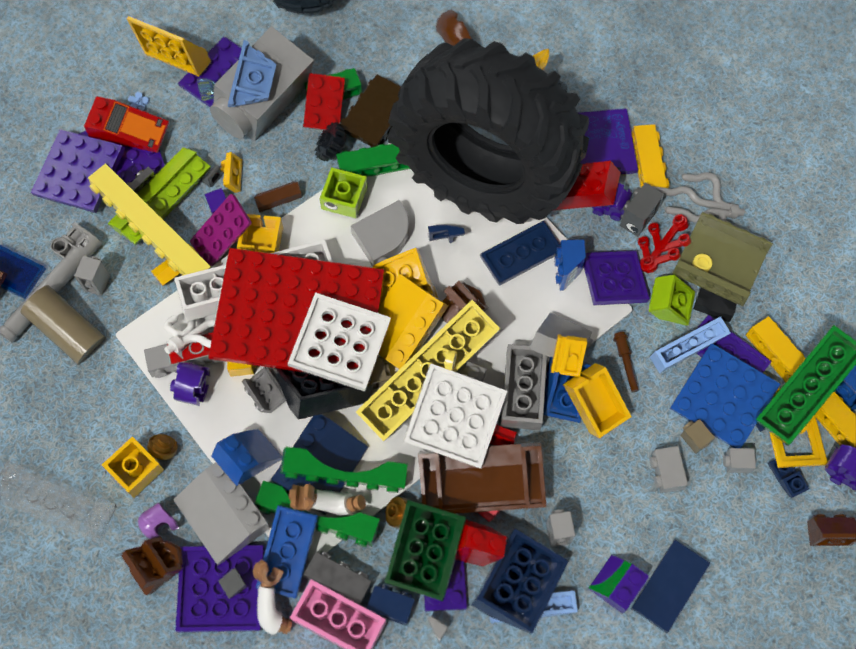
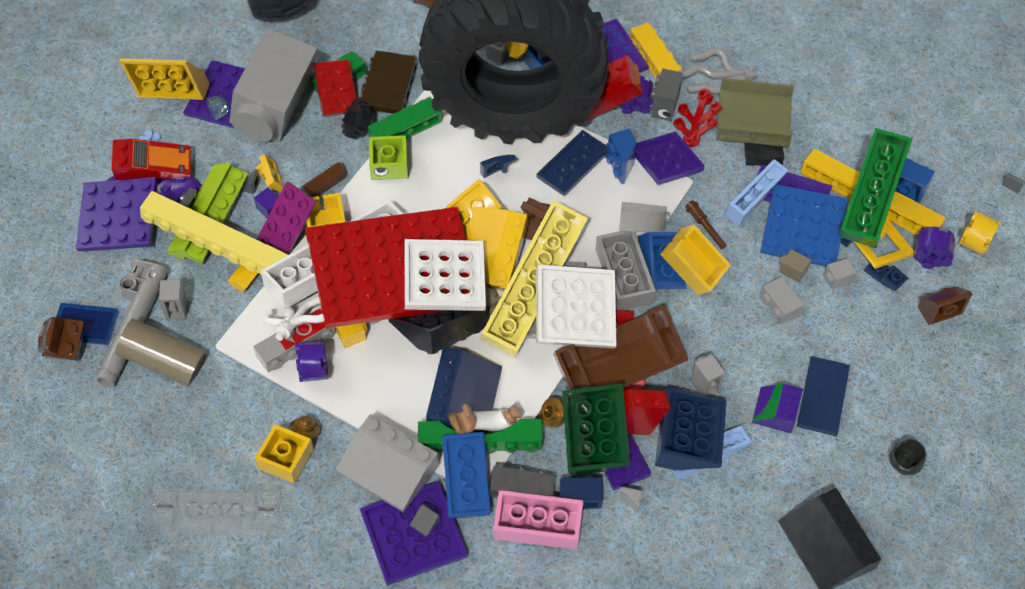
camera: 20 degrees left, 10 degrees down
(153, 518) = (325, 490): medium lavender helmet -> none
(153, 563) = (340, 531): reddish brown piece -> none
(245, 455) = (390, 405): blue slope -> none
(252, 77) = (267, 75): medium blue wing -> none
(264, 391) = (385, 347): flat silver bracket -> none
(268, 616) = (470, 537): piece -> none
(302, 463) = (451, 390): green arch -> none
(382, 232) = (438, 181): light grey brick -> none
(450, 360) = (554, 257): light yellow tile -> none
(569, 355) = (657, 224): yellow plate -> none
(672, 300) = (724, 162): lime slope -> none
(702, 262) = (739, 118): light yellow tile -> none

